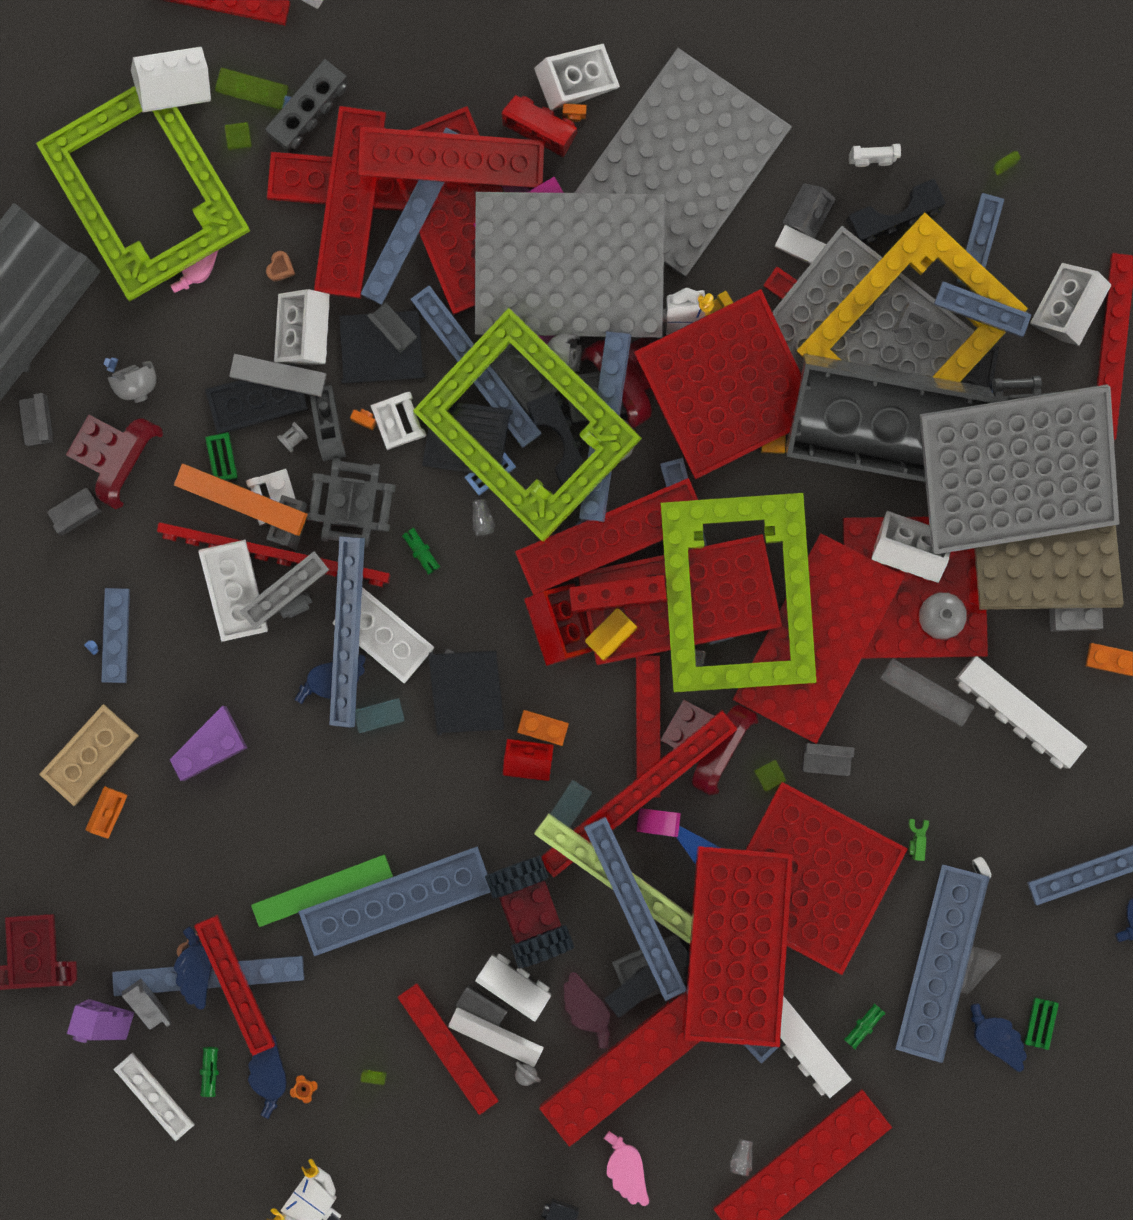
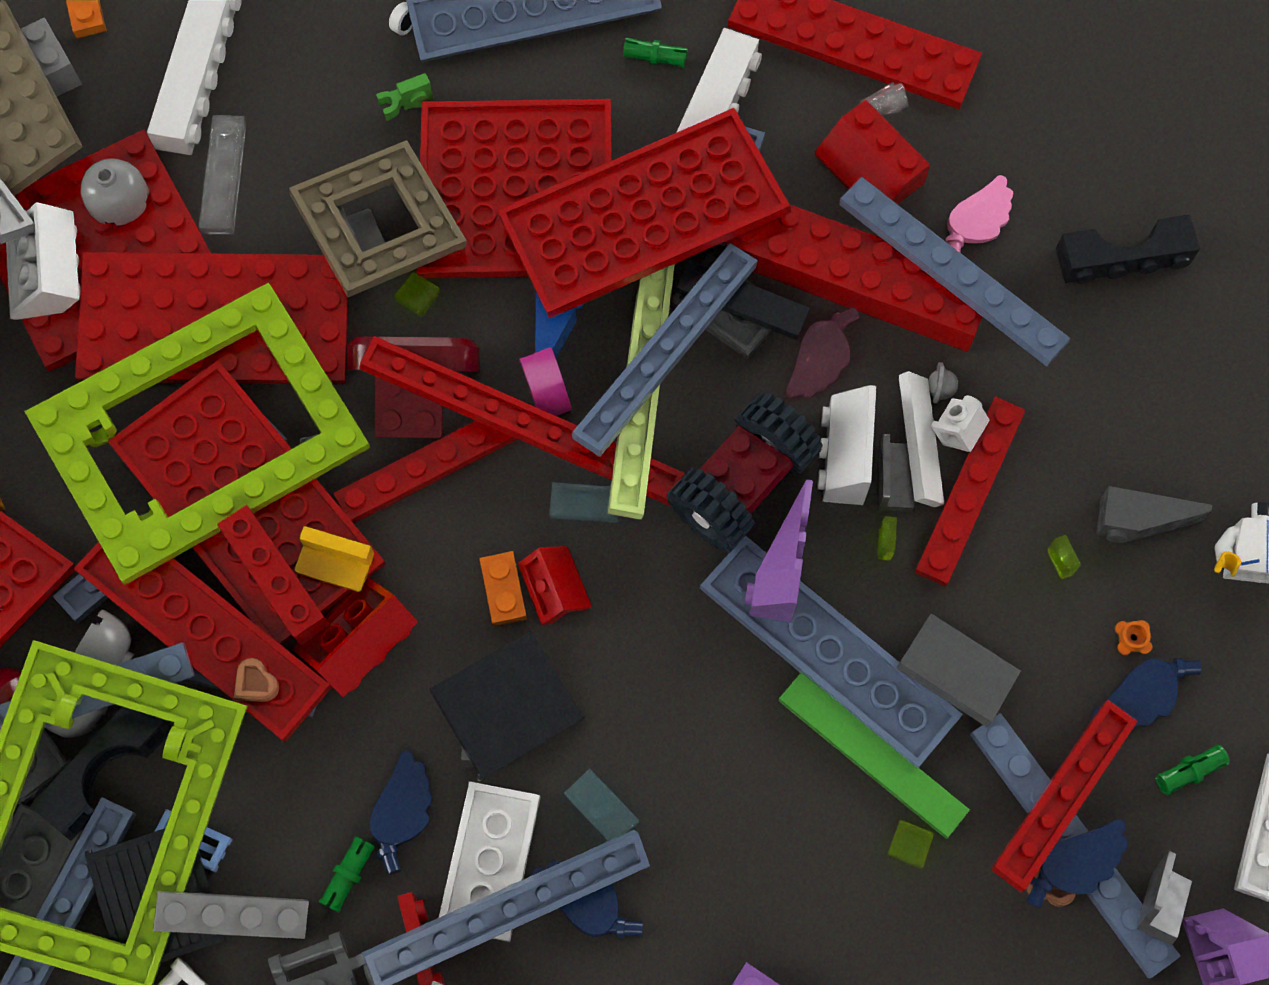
camera: 115 degrees left, 15 degrees down
(260, 881) = (910, 844): none -> clear neon green tile
(341, 970) = (959, 670): none -> dark grey tile
(374, 1138) = (1135, 514): none -> dark grey slope
(430, 475) = (230, 915): none -> light grey plate
(442, 600) = (401, 810): none -> dark blue animal
(444, 977) = (887, 538): none -> clear neon green tile
(452, 894) = (779, 575): none -> medium lavender wedge
(482, 519) = (262, 813): clear cone -> none
(490, 1067) = (961, 423): none -> white brick
(556, 551) = (254, 682): none -> nougat tile
(587, 1120) = (954, 271): none -> sand blue plate
(632, 474) = (107, 640): none -> light grey cylinder
(703, 1122) = (872, 149): none -> red slope
(862, 805) = (360, 270): none -> dark tan plate

